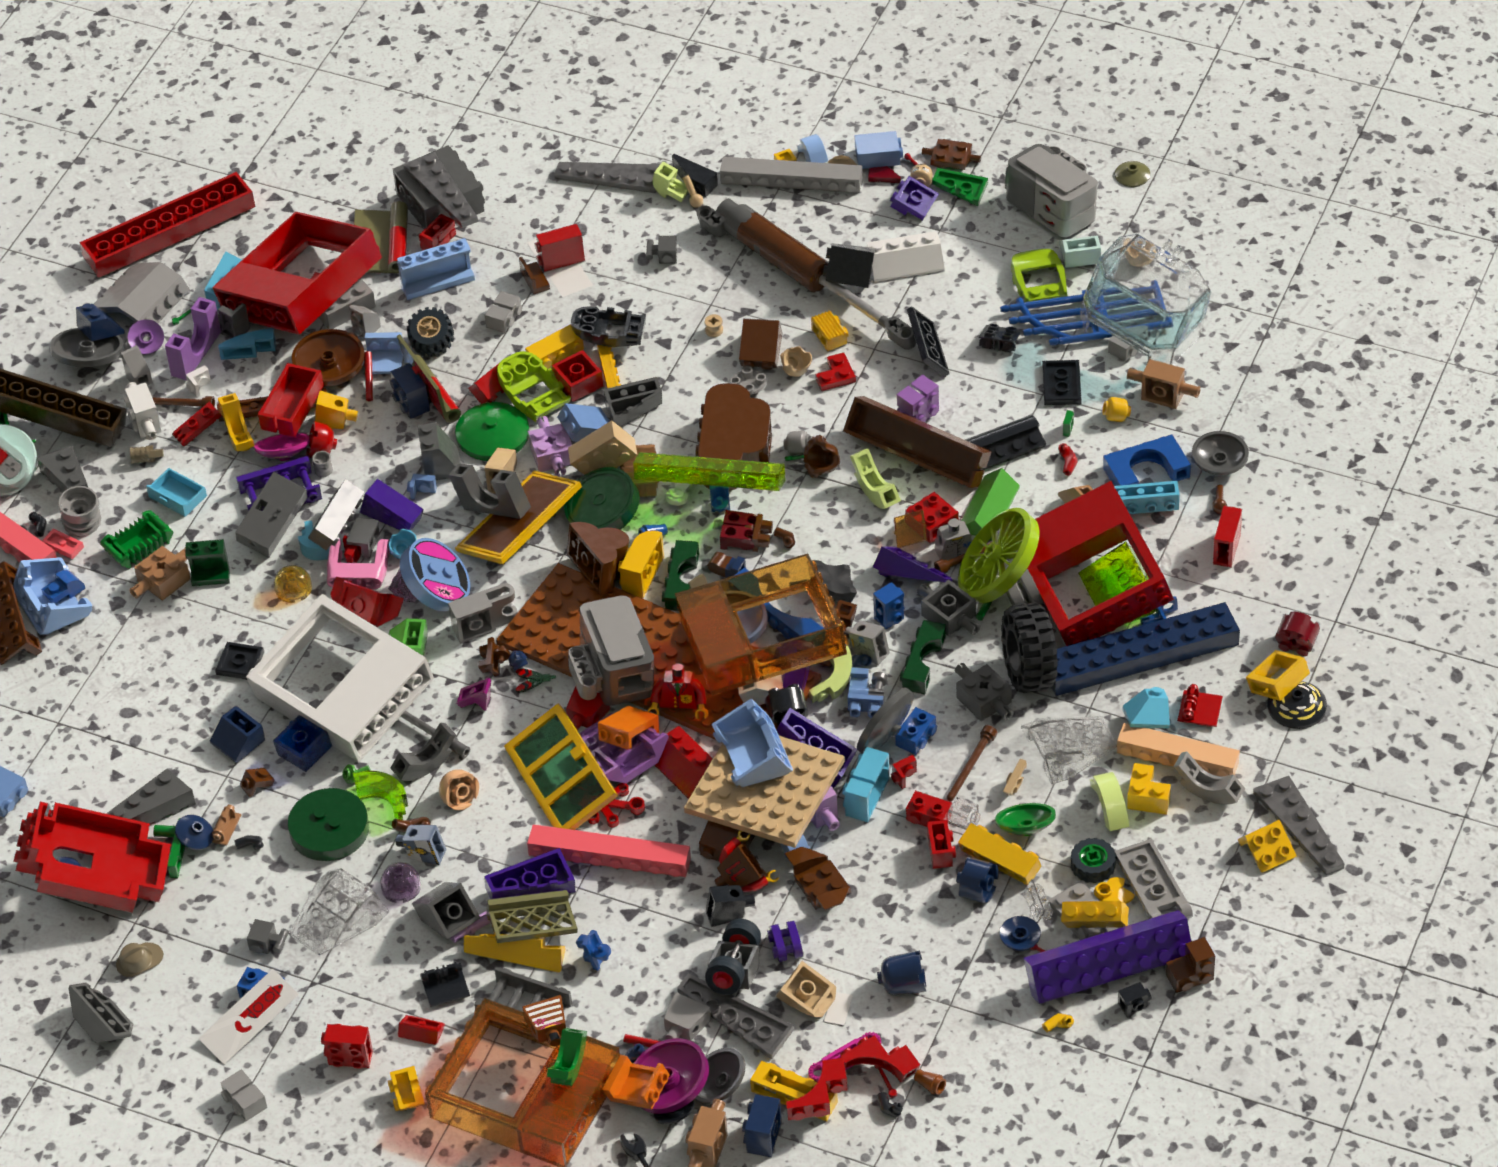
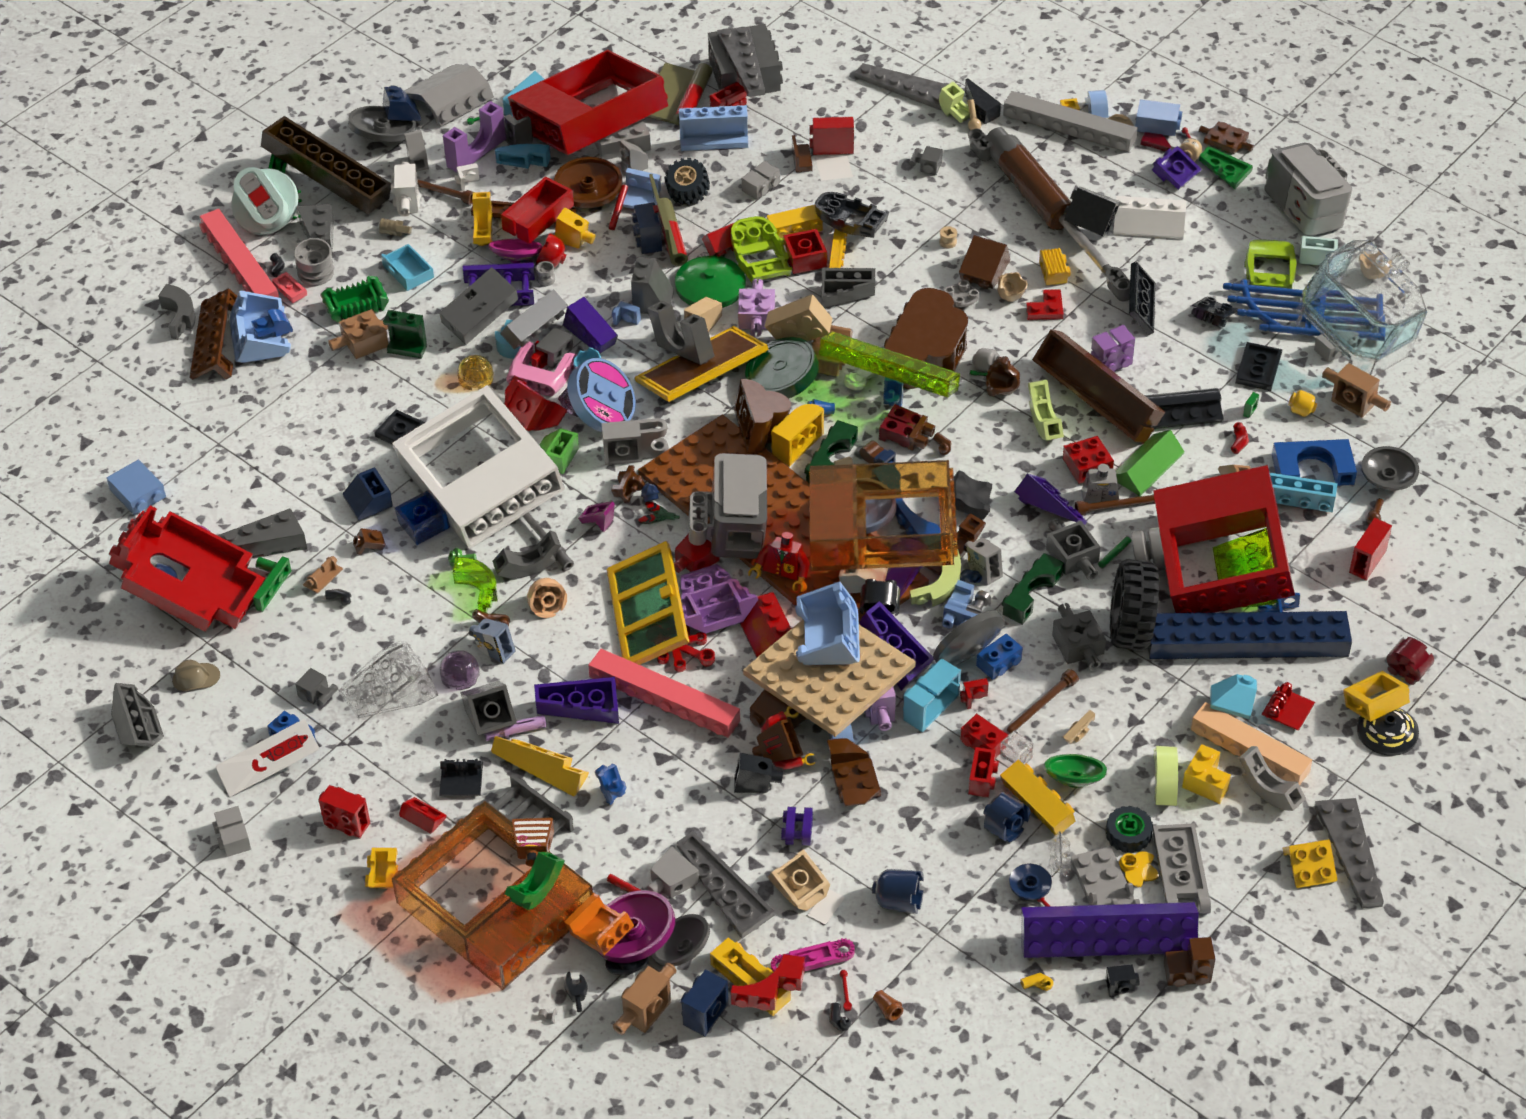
camera: 15 degrees right, 0 degrees up
(146, 328) = (432, 122): medium lavender dish -> none
(167, 224) = (496, 37): red brick -> none
(193, 838) = (286, 577): dark blue dish -> none
(196, 424) = (449, 212): red hinge -> none
(328, 824) = (416, 598): dark green brick -> none
(530, 906) = (565, 725): olive fence -> none
(581, 420) = (789, 288): medium blue brick -> none
(624, 725) = (722, 577): orange panel -> none
(634, 1052) = (611, 894): dark blue arm -> none
(734, 958) = (740, 829): brick -> none
(870, 1051) = (837, 958): red arch -> none
(888, 605) = (1015, 531): blue brick -> none
(910, 529) = (1062, 464): clear orange piece -> none
(1017, 533) = (1118, 521): lime piece -> none
(1069, 744) = (1145, 709): clear wedge -> none
(1094, 914) = (1109, 883): yellow brick -> none
(1132, 173) = (1393, 194): olive dish -> none

